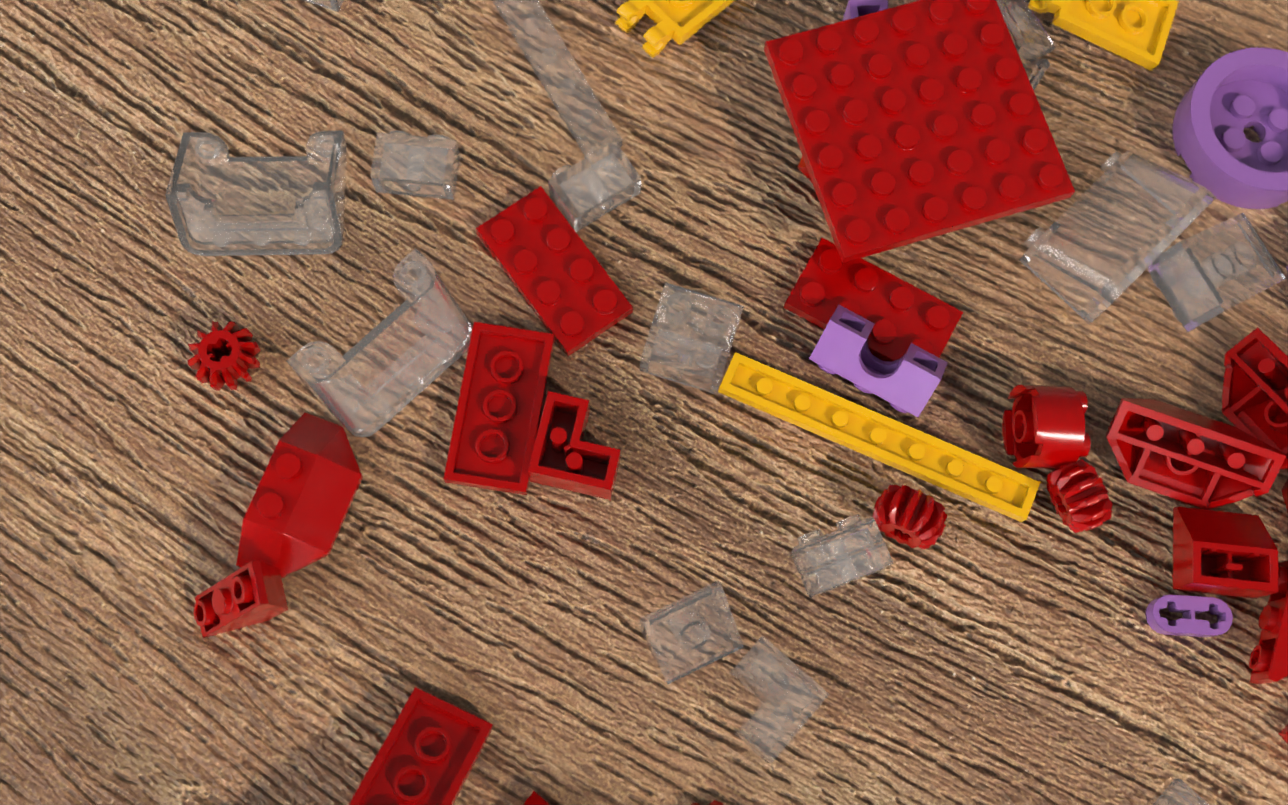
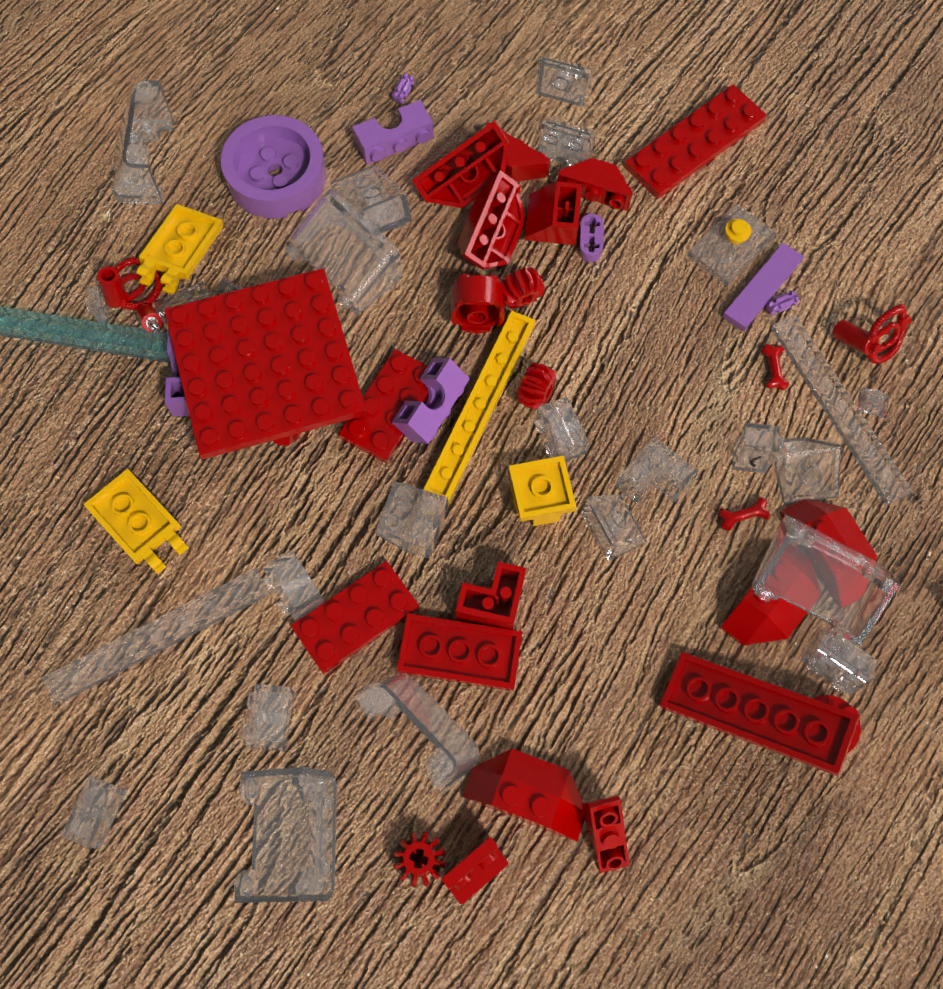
camera: 85 degrees left, 5 degrees down
(203, 425) = (475, 871): none -> red bracket
(739, 520) = (541, 490): none -> yellow panel

